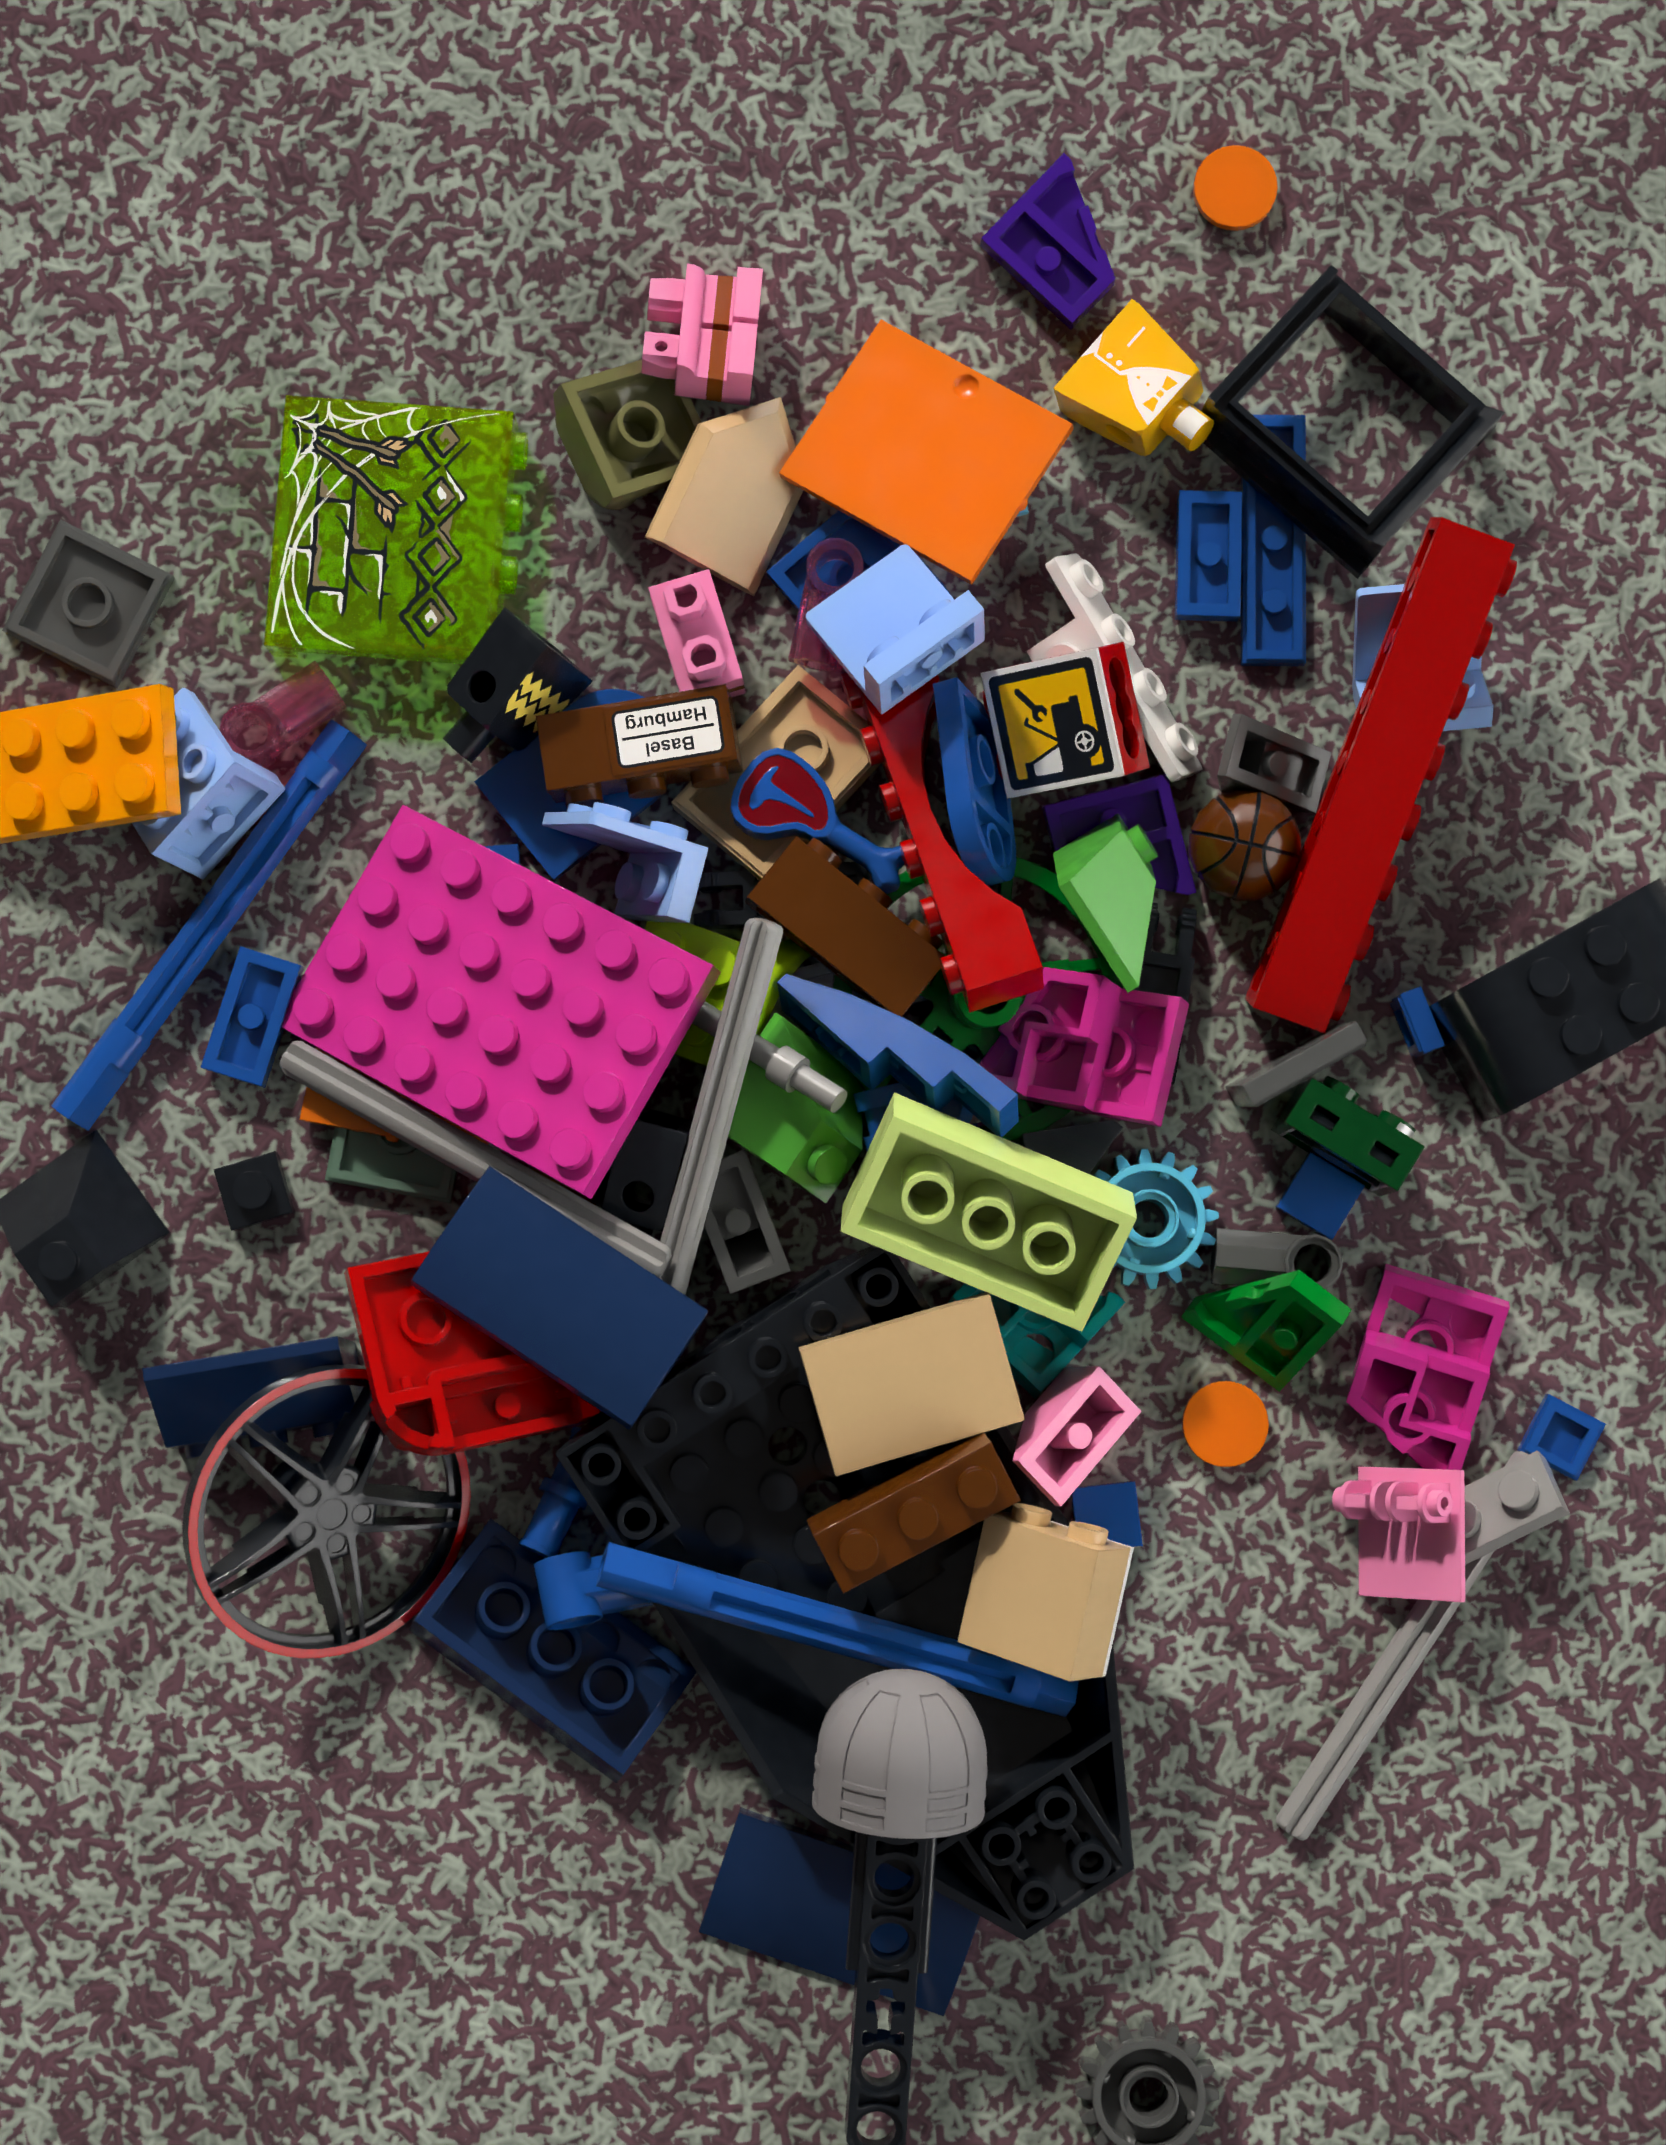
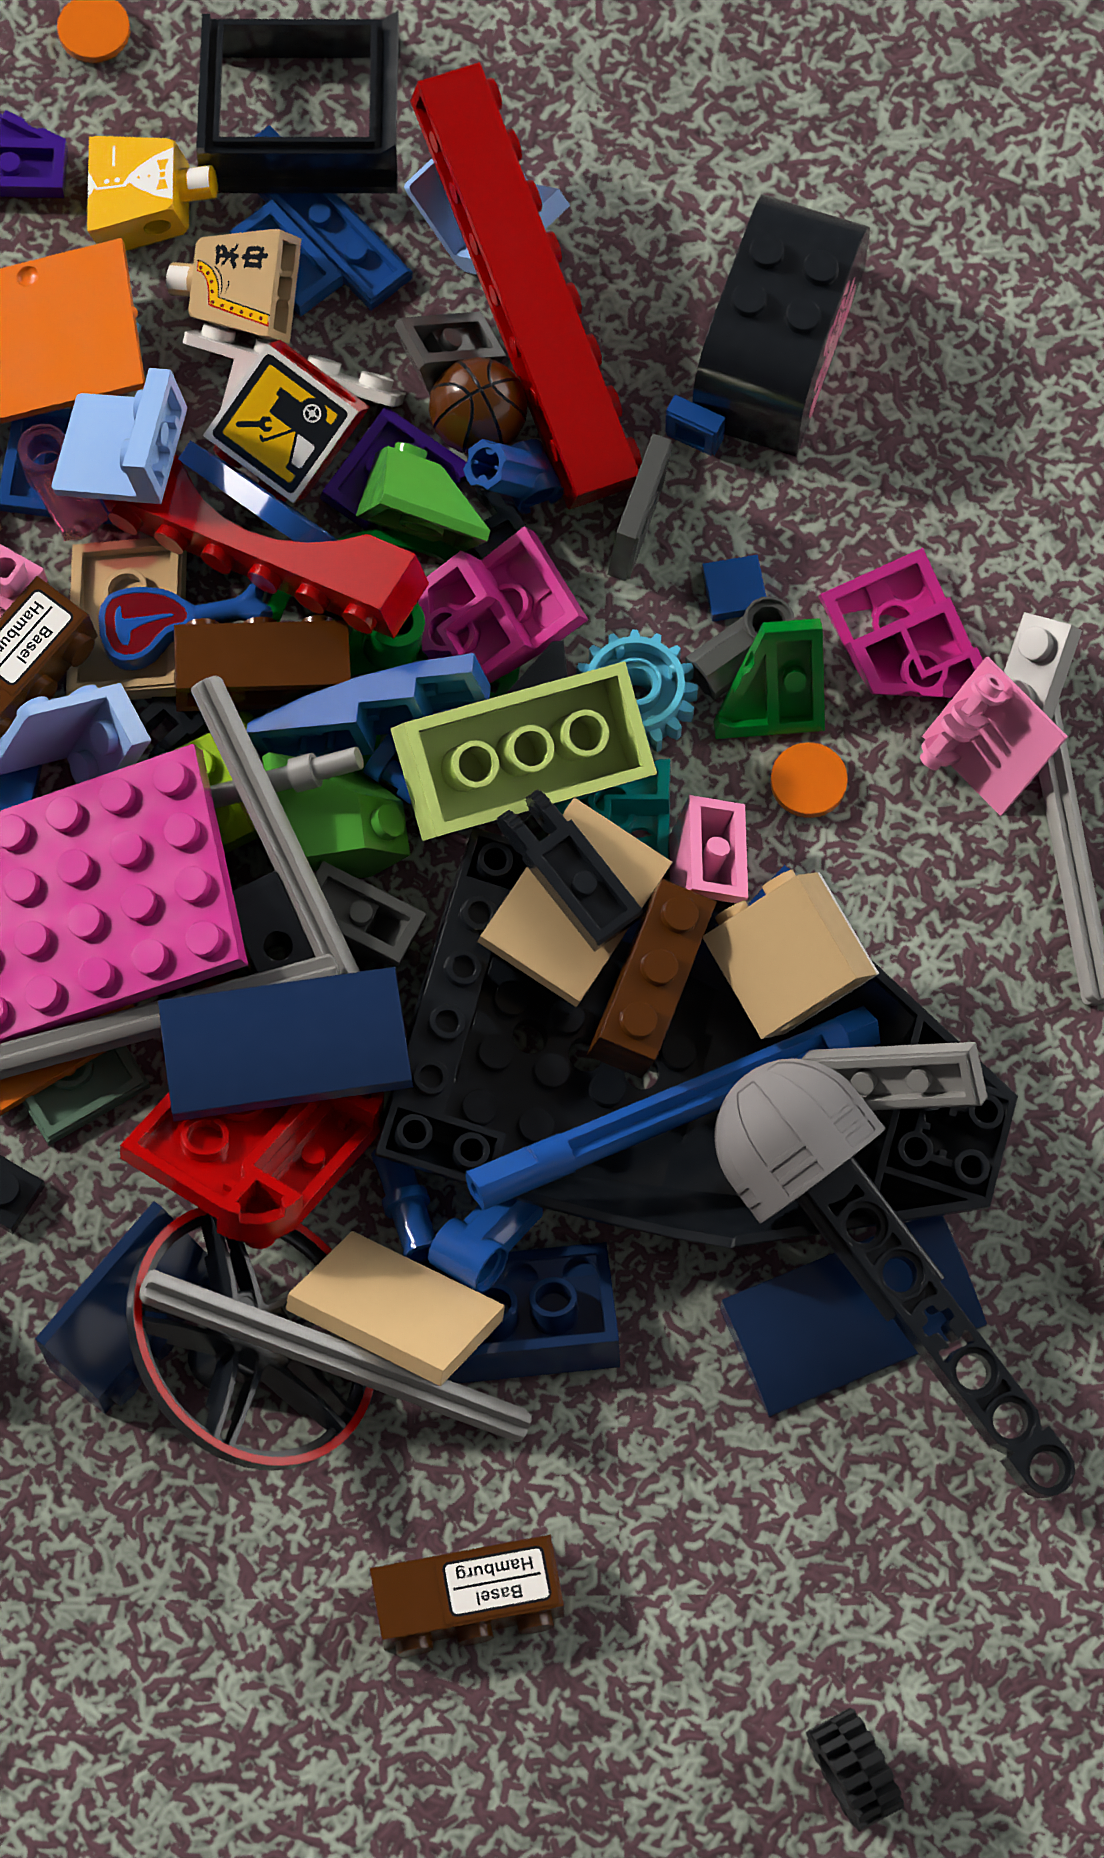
camera: 45 degrees left, 15 degrees down
(322, 1866) = (467, 1595): none -> reddish brown brick
(372, 1590) = (331, 1355): none -> light grey axle
(465, 1589) = (395, 1308): none -> tan tile
(923, 1368) = (572, 872): none -> black hinge
(1041, 1783) = (910, 1074): none -> light grey tile
(1142, 554) = (242, 282): none -> tan torso
(1219, 933) = (515, 471): none -> blue piece
(1361, 1144) = (715, 521): dark green piece -> none
(1562, 1436) = (1034, 595): blue tile -> none

